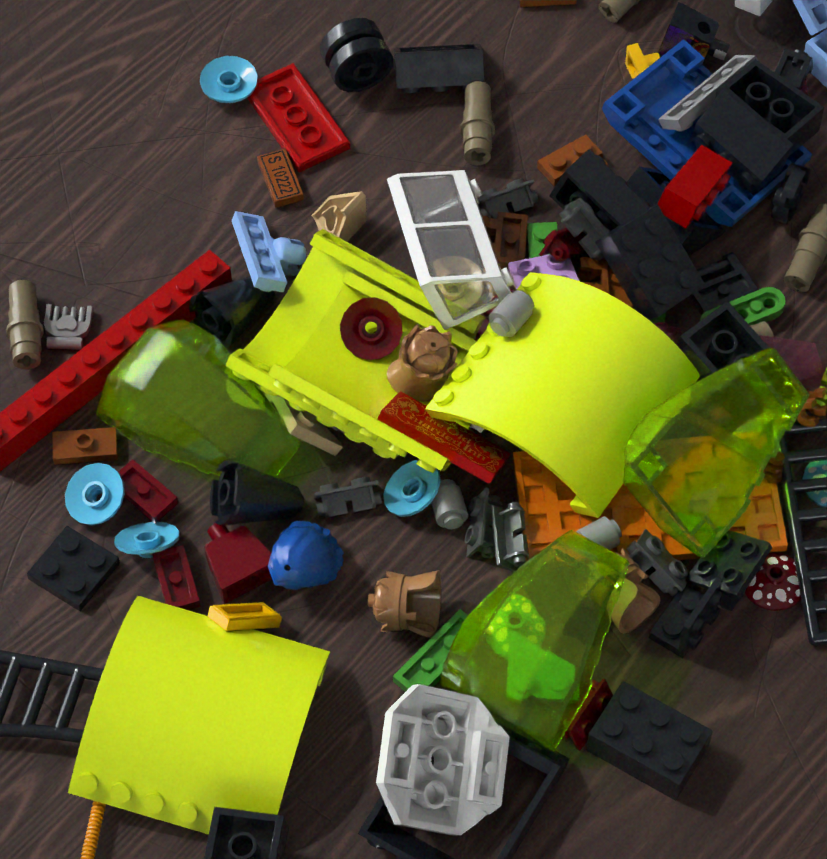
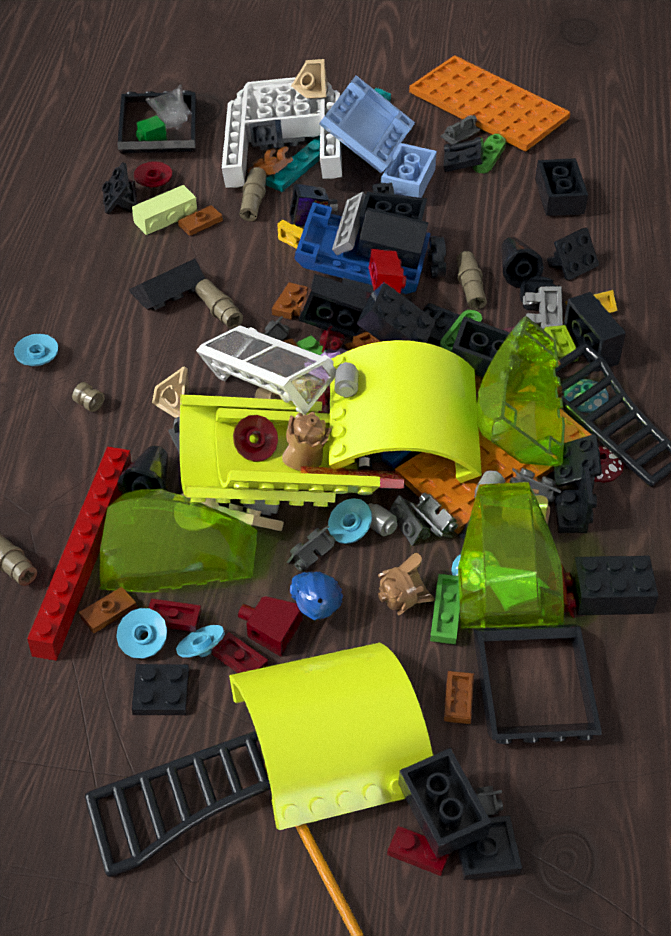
camera: 35 degrees left, 10 degrees down
(66, 331) = (38, 547): light grey piece -> none
(242, 171) = (88, 396): none -> dark tan wheel
(244, 616) = (308, 650): yellow tile -> none
(251, 496) = (251, 576): black cone -> none
(266, 257) = (149, 433): light blue plate -> none
(280, 178) = (115, 391): dark orange tile -> none
(297, 118) = (98, 353): red tile -> none
(356, 55) = (114, 297): black wheel -> none
(361, 770) = (459, 697): none -> dark orange plate
(467, 764) = (512, 662): white piece -> none
(580, 218) = (339, 321): dark grey hinge -> none

